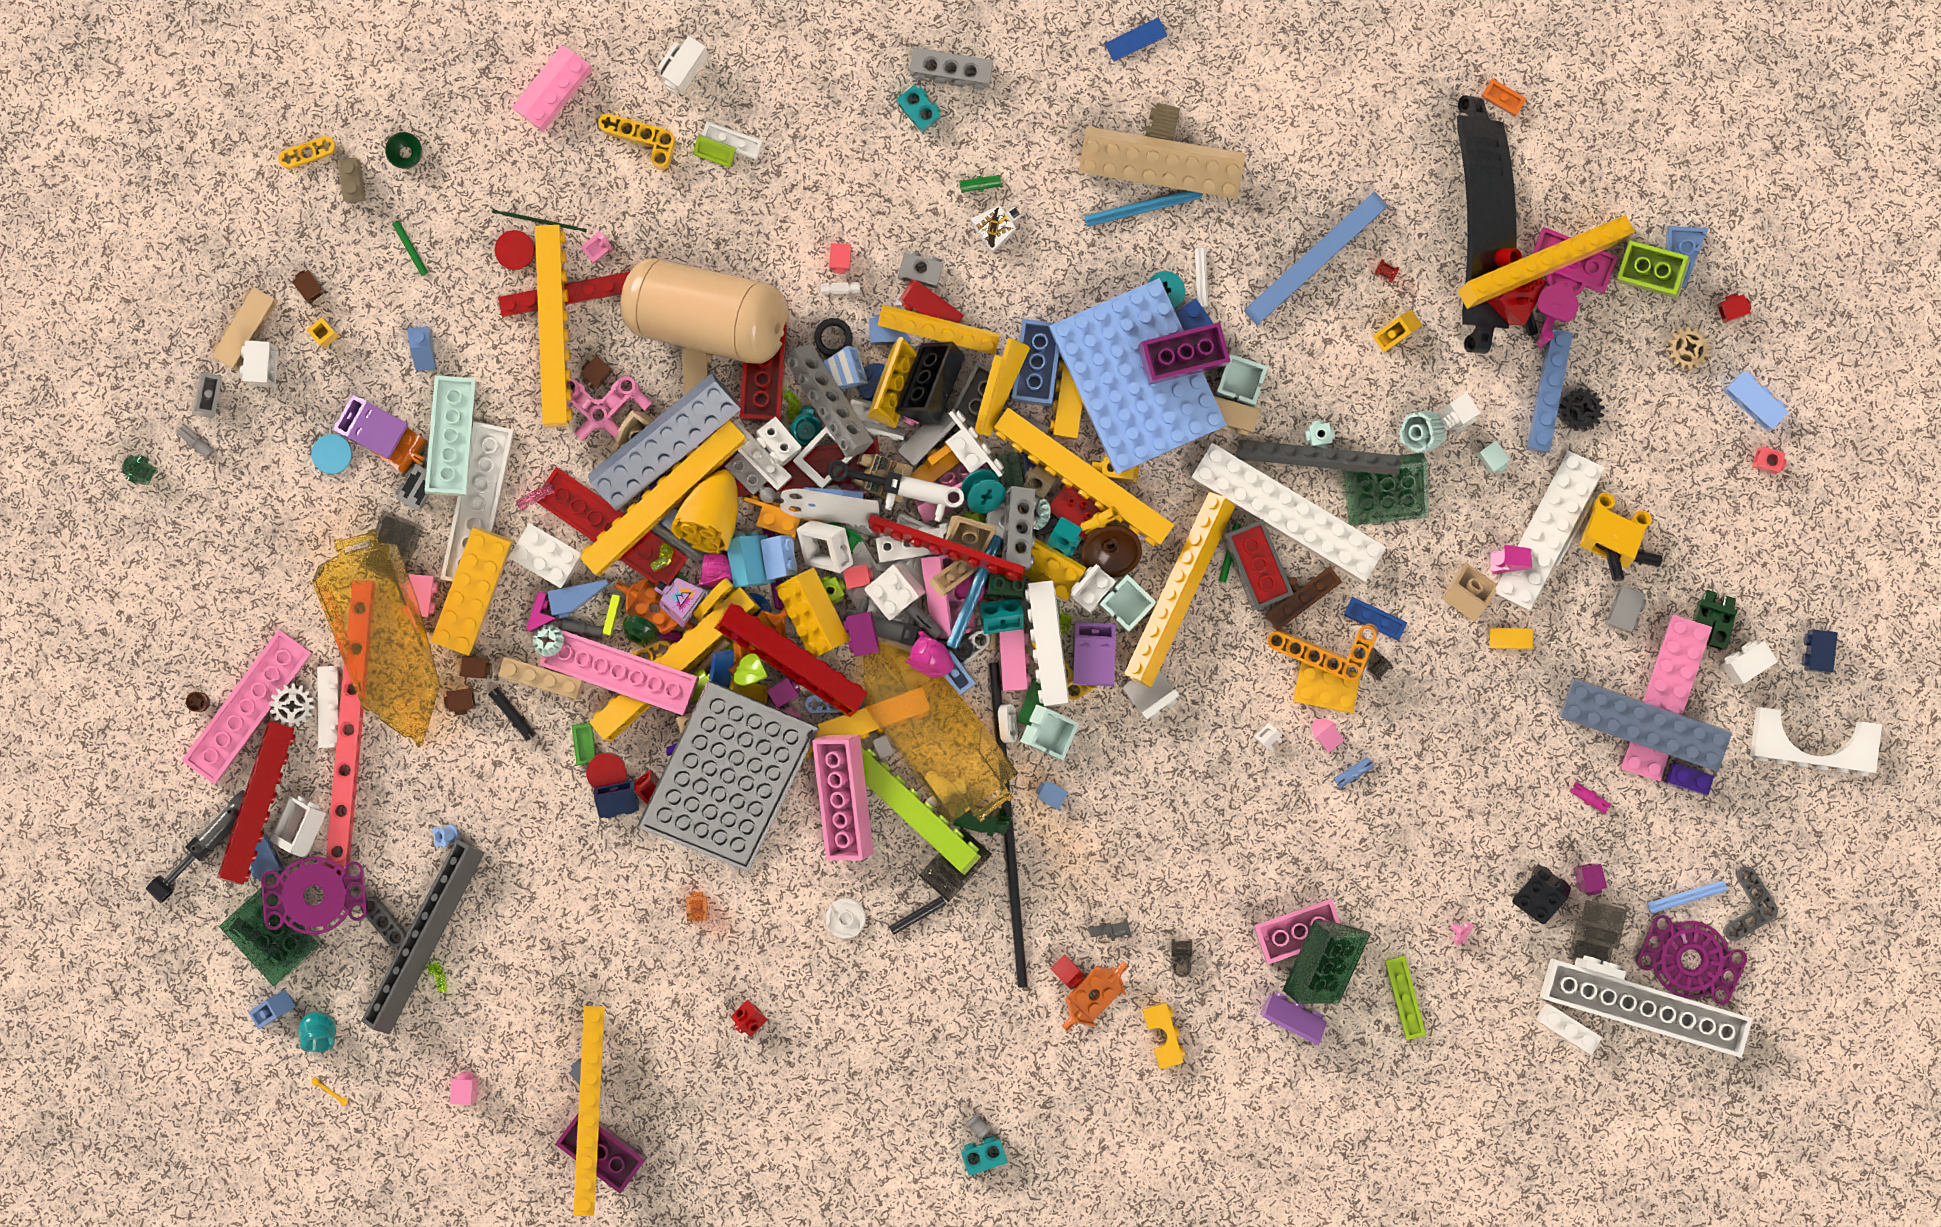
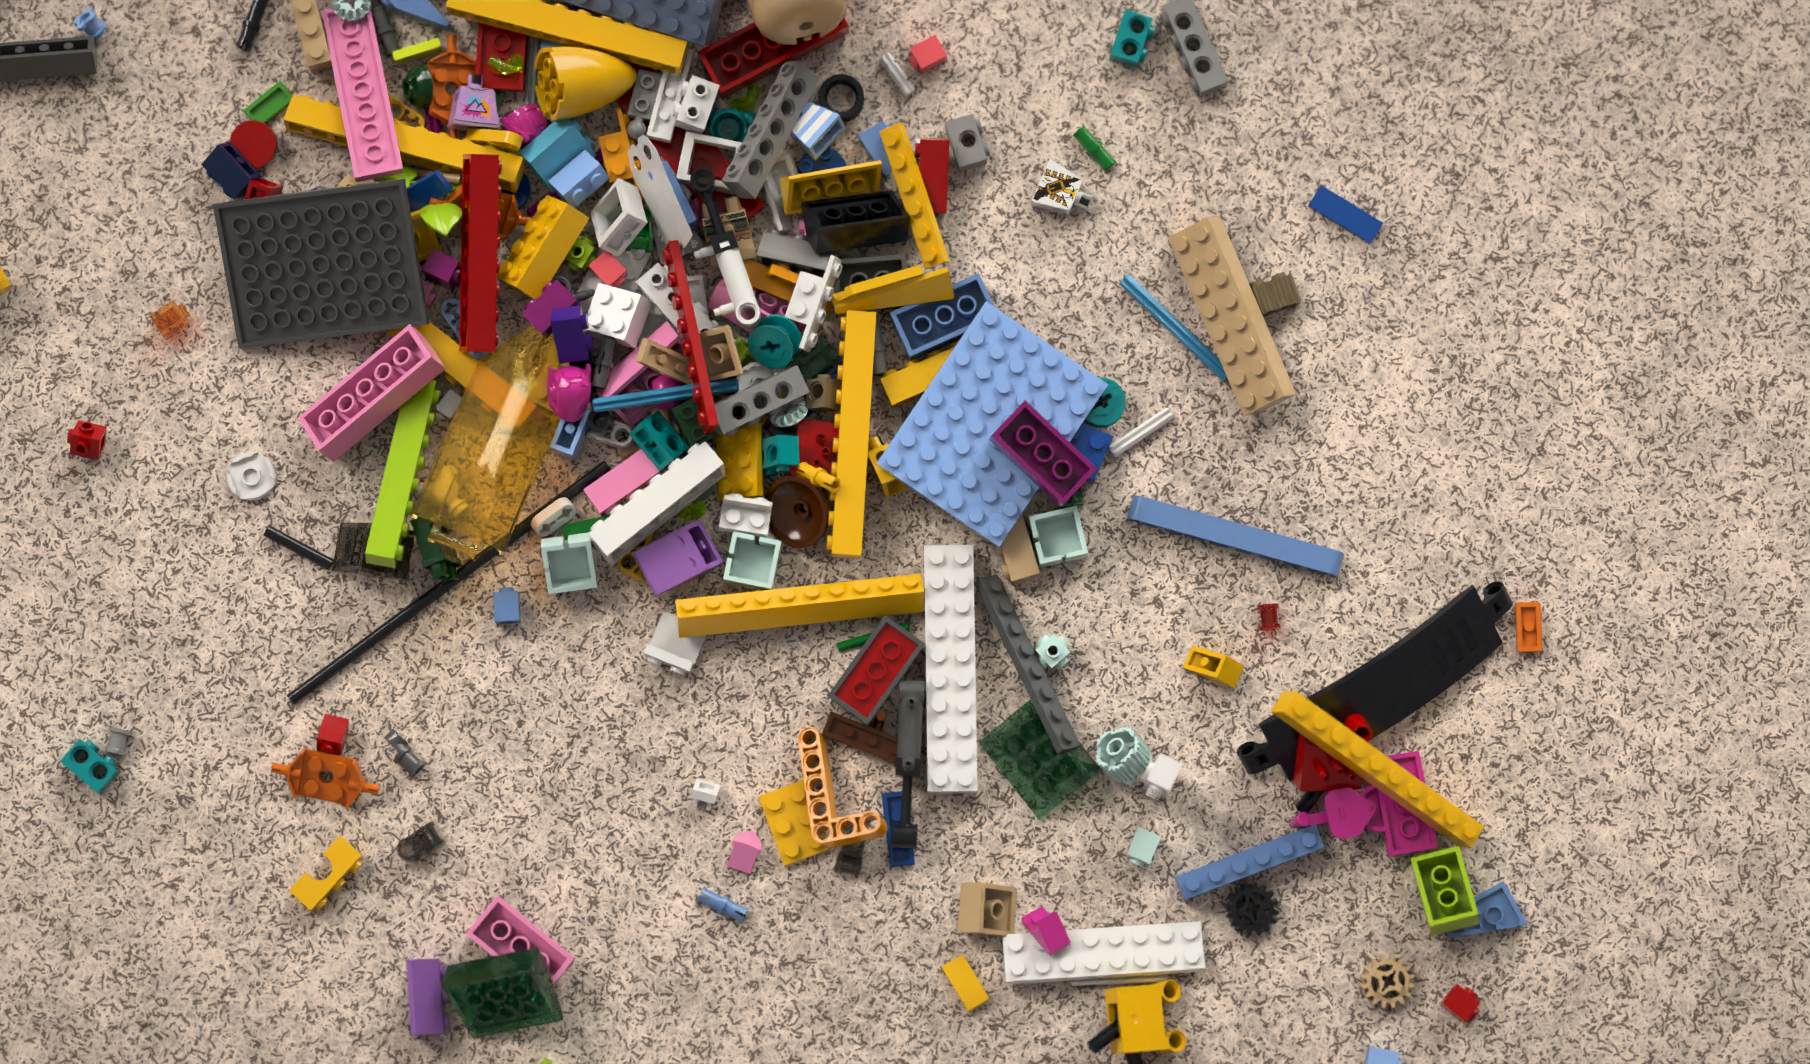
camera: 55 degrees right, 5 degrees down
(892, 631) = (570, 334): none -> dark purple brick
(1334, 581) = (908, 757): none -> piece

